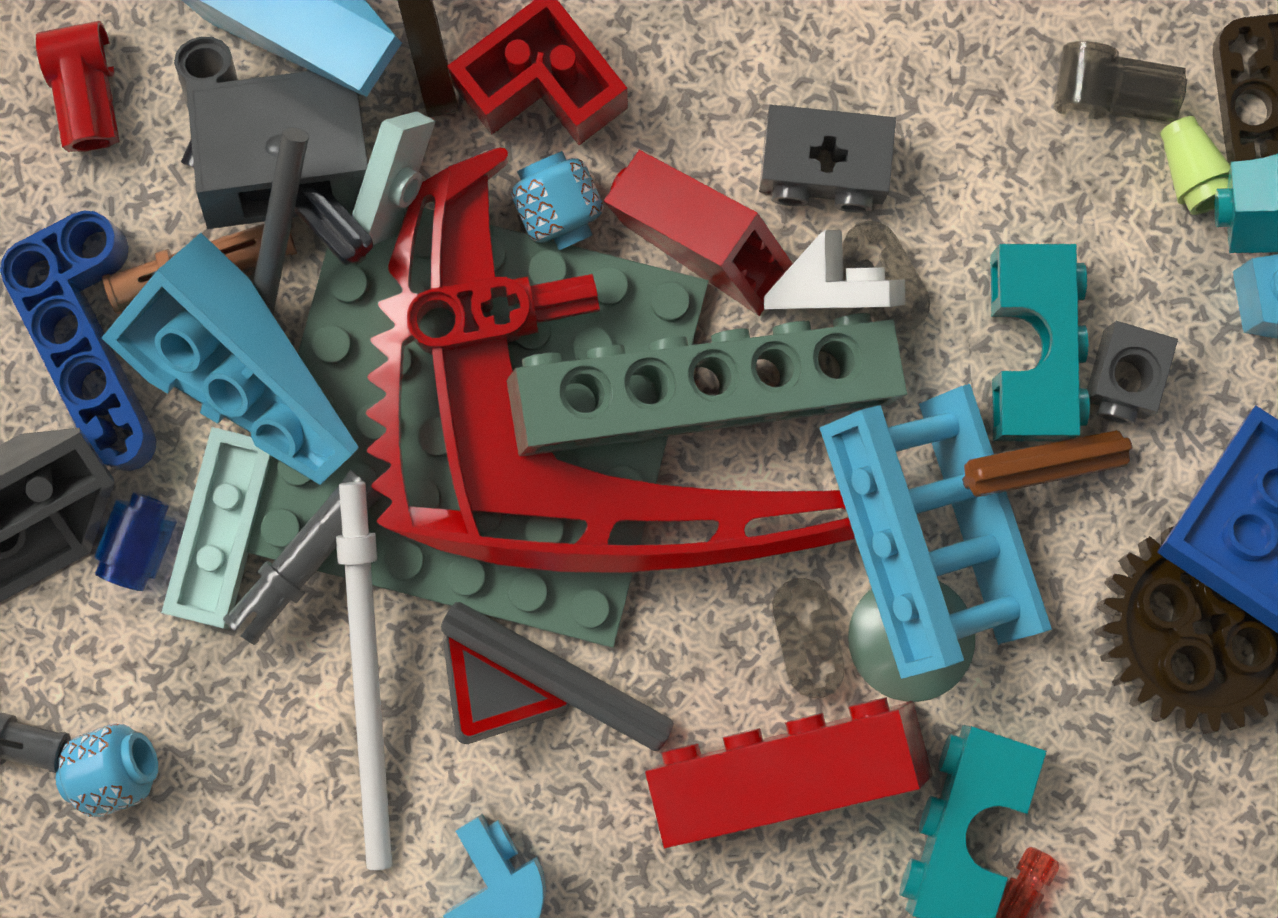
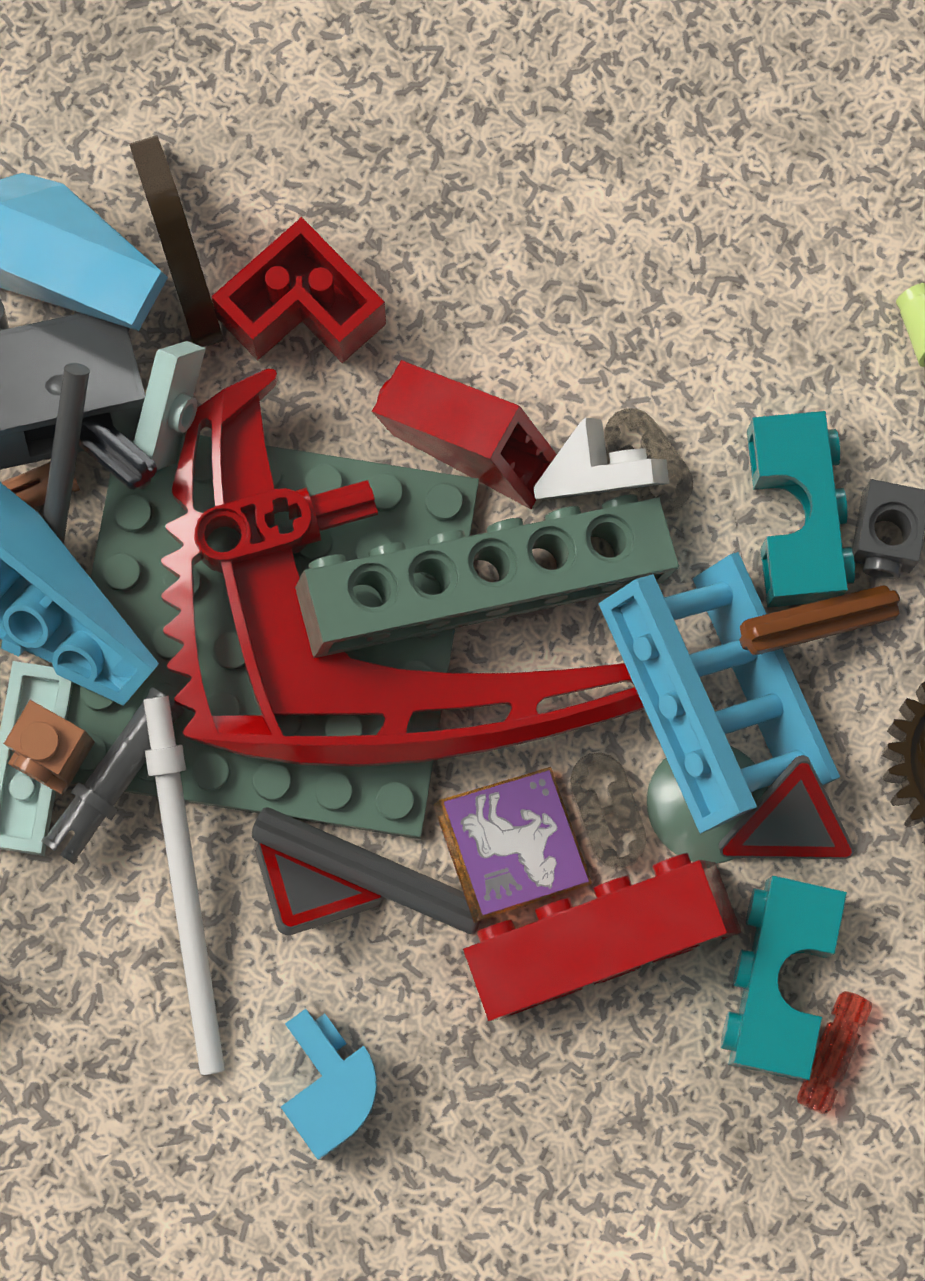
camera: 10 degrees left, 5 degrees down
(237, 523) = (47, 747): none -> nougat brick
(557, 200) = (326, 415): medium azure head -> none
(706, 665) = (512, 844): none -> tile
(858, 145) = (610, 341): dark grey brick -> none
(997, 669) = (790, 821): none -> piece
(1104, 84) = (837, 260): clear smoke piece -> none

